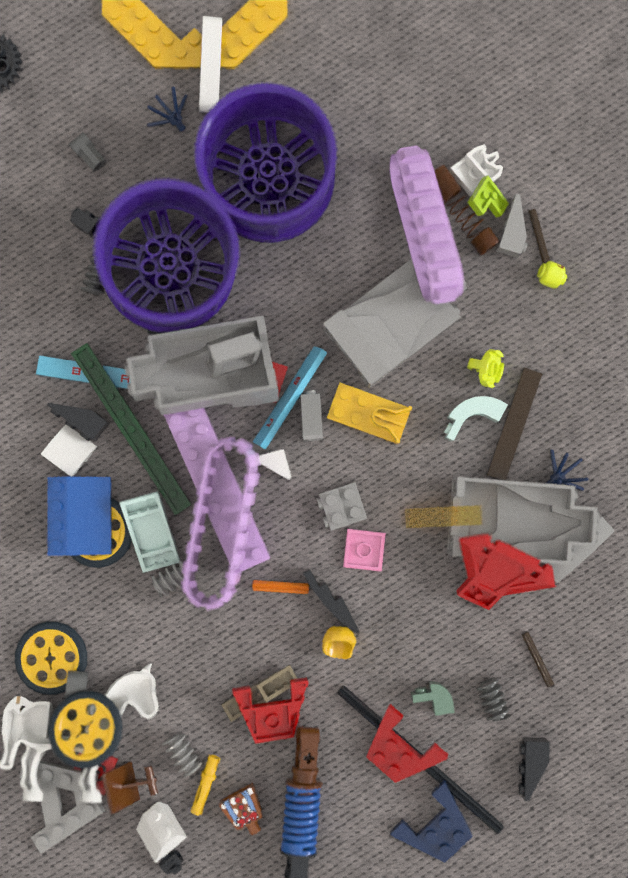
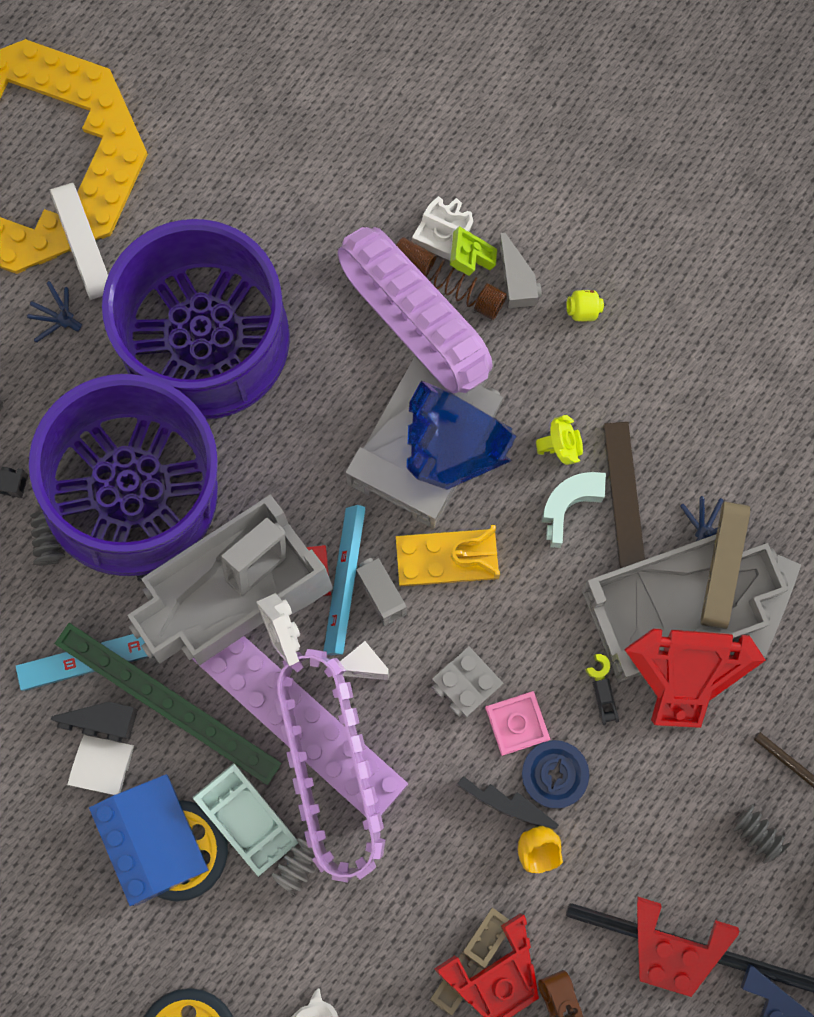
camera: 25 degrees left, 10 degrees down
(227, 416) = (279, 627): none -> white plate
(282, 587) = (436, 815): orange axle -> none
(387, 596) = (572, 766): none -> dark blue gear
(409, 333) = (453, 438): none -> clear blue panel
(433, 554) = (603, 689): none -> black piece
(440, 696) = (693, 860): sand green brick -> none
(444, 516) = (593, 637): clear yellow slope -> none
(539, 236) = (548, 269): dark brown bar -> none
(559, 509) = (725, 565): none -> dark tan beam

